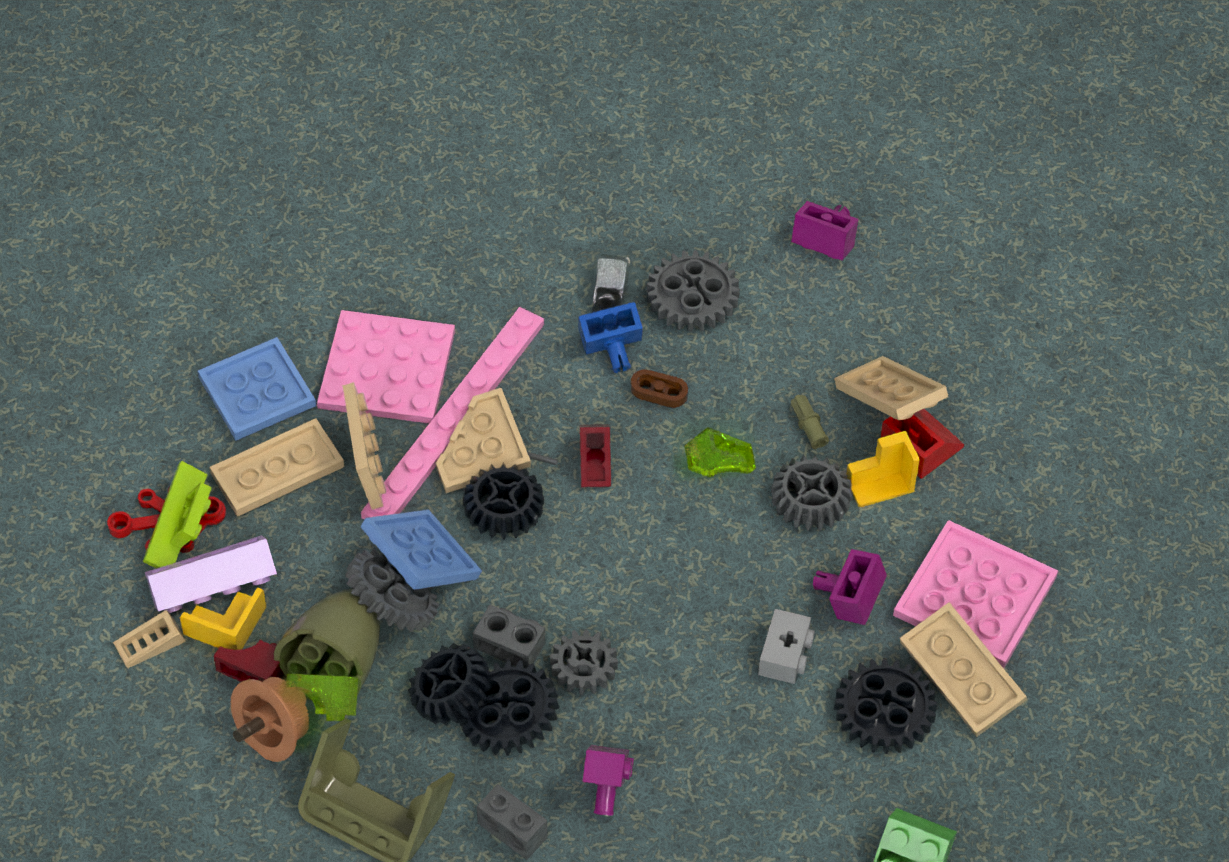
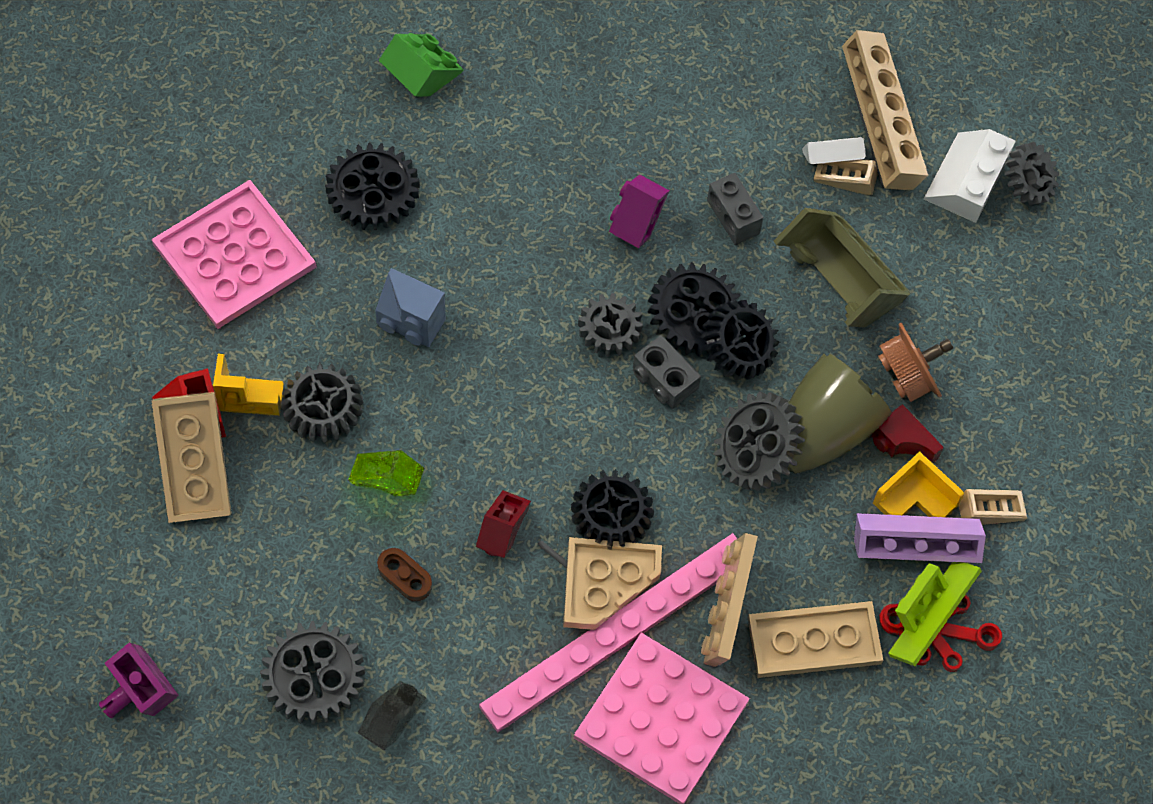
camera: 160 degrees left, 10 degrees up
(256, 388) = (805, 741): medium blue plate -> none
(330, 694) = (861, 344): clear neon green arch -> none
(420, 549) = (715, 475): medium blue plate -> none
(610, 331) = (422, 648): blue brick -> none
(774, 586) = (410, 308): none -> sand blue slope
(777, 659) = (435, 253): light grey brick -> none
(809, 421) = (280, 481): olive axle -> none
(856, 586) = (338, 291): magenta brick -> none
(963, 669) = (291, 184): tan plate -> none

